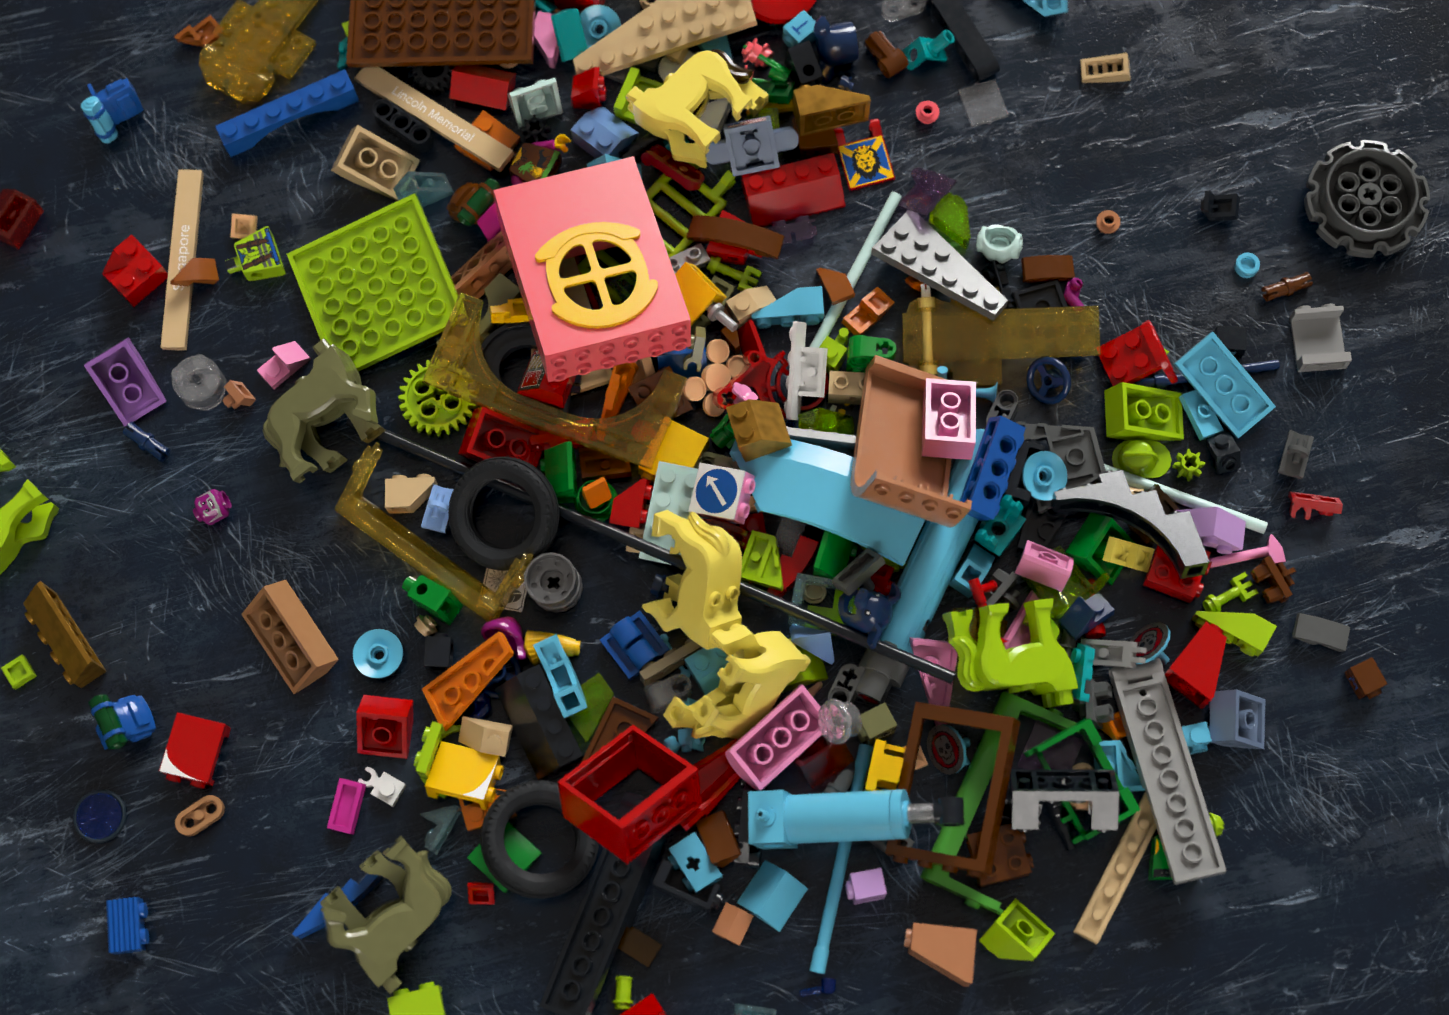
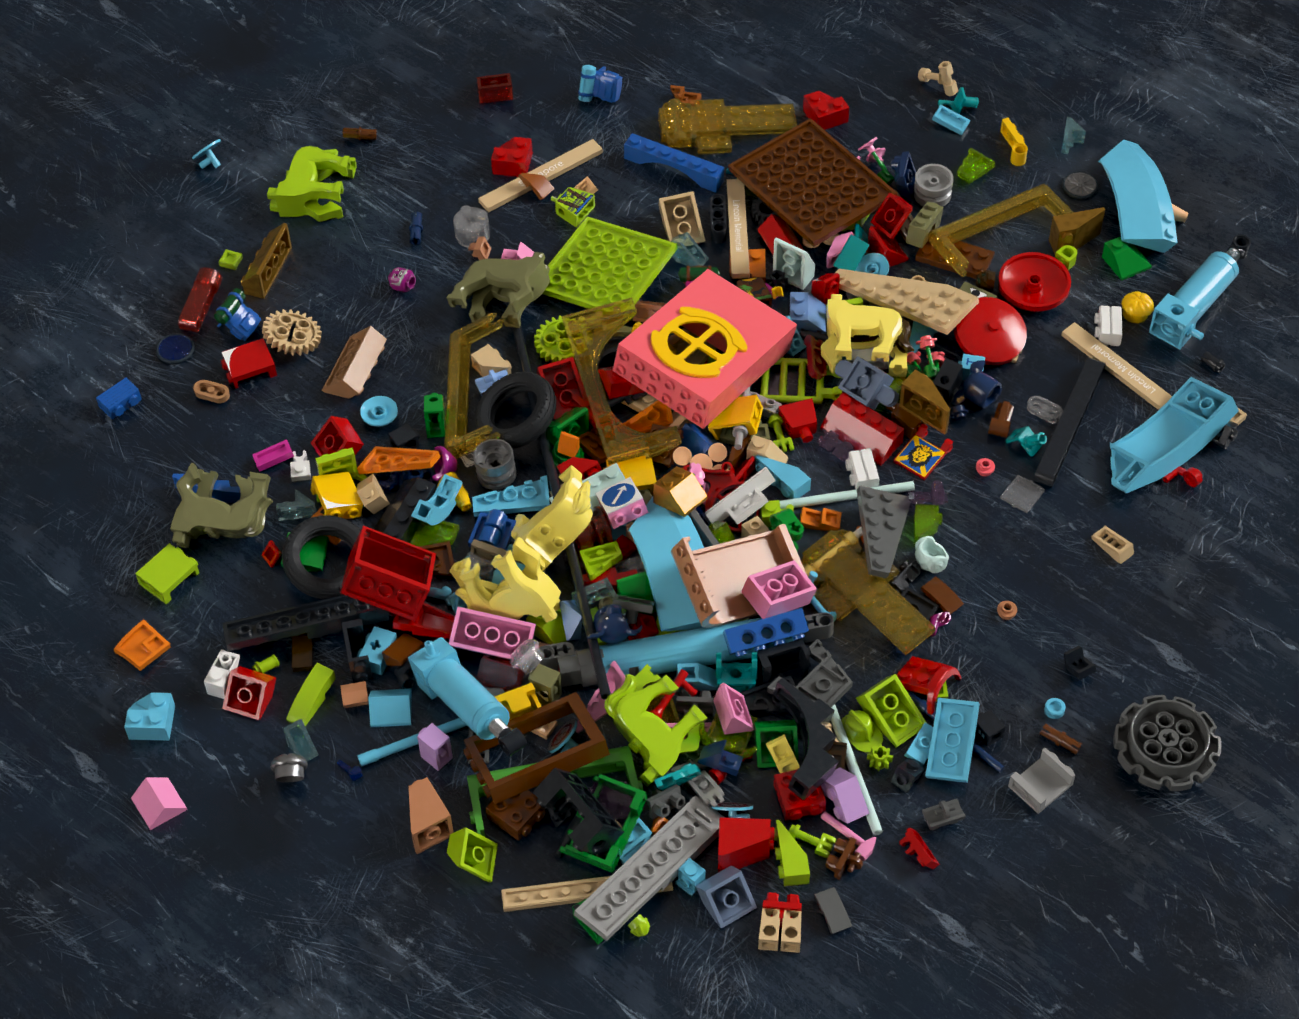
camera: 50 degrees right, 20 degrees down
(41, 724) = (200, 298): none -> clear red beam
(125, 381) = (443, 193): medium lavender slope -> none
(172, 689) = (278, 328): none -> tan gear
(426, 625) = (416, 422): tan plate -> none
(610, 587) = (523, 498): none -> medium azure wing
(697, 347) = (708, 436): olive plate -> none
(701, 971) = (311, 694): none -> lime slope
(737, 234) = (803, 415): reddish brown slope -> none
(836, 285) = (819, 489): dark orange slope -> none
(843, 228) = (862, 468): none -> white brick
(1053, 473) = (795, 660): medium azure dish -> none
(1059, 376) = (865, 642): dark blue piece -> none
(1304, 691) = (780, 915): none -> tan hips
(1366, 679) = (822, 957): reddish brown brick -> none

